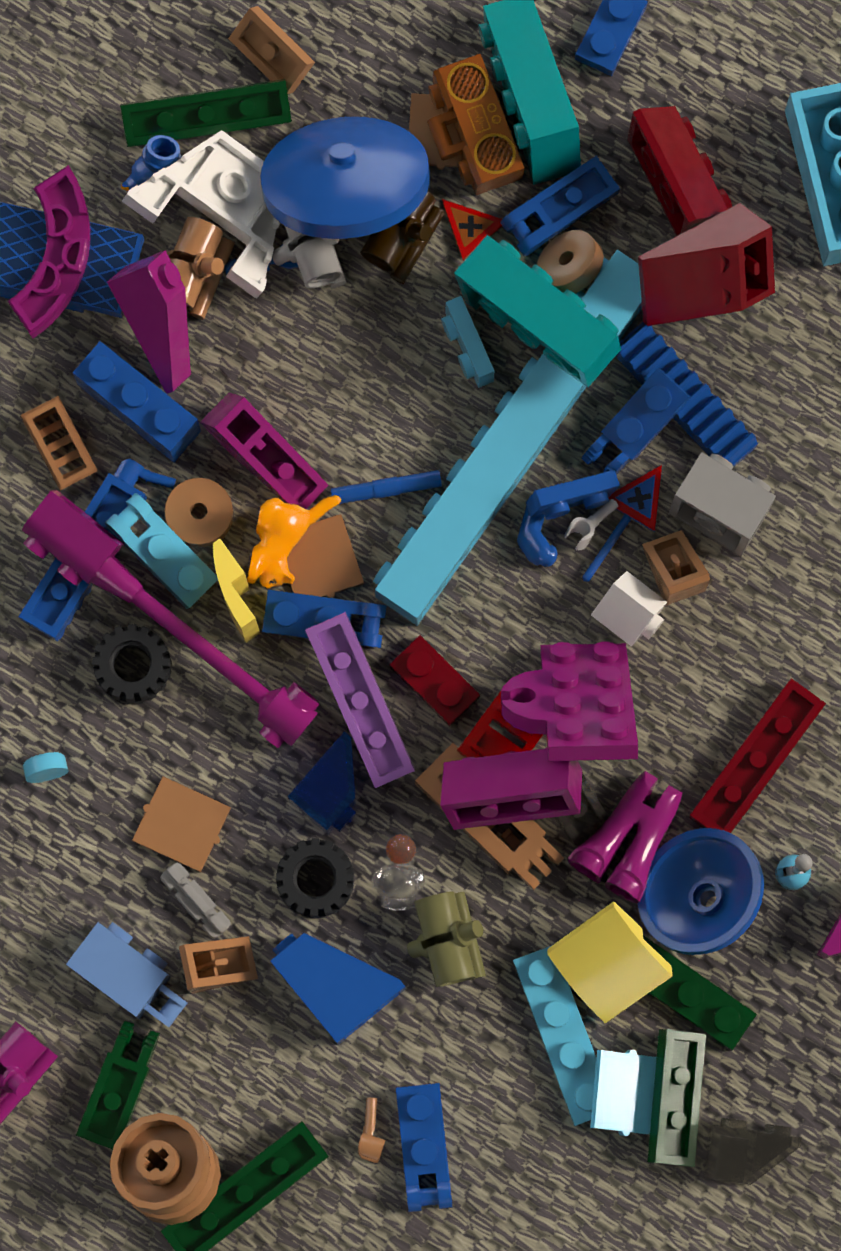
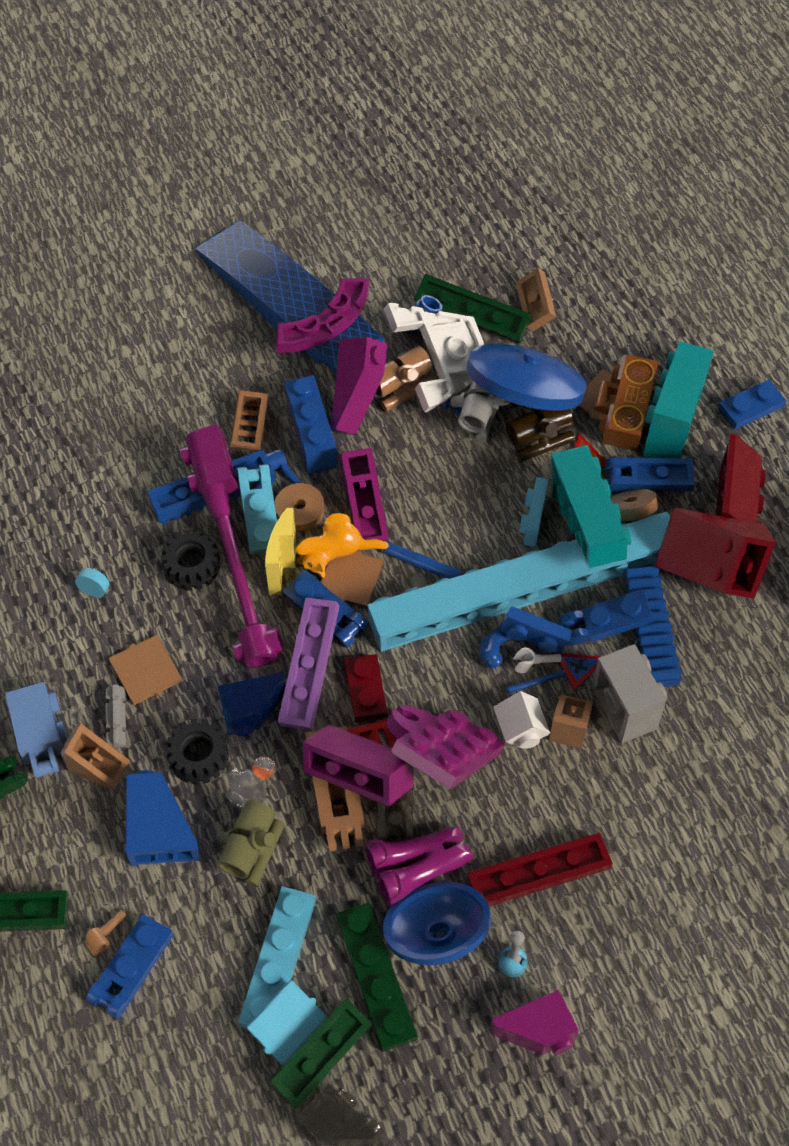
camera: 35 degrees right, 20 degrees down
(609, 962) = (341, 926): light yellow slope -> none

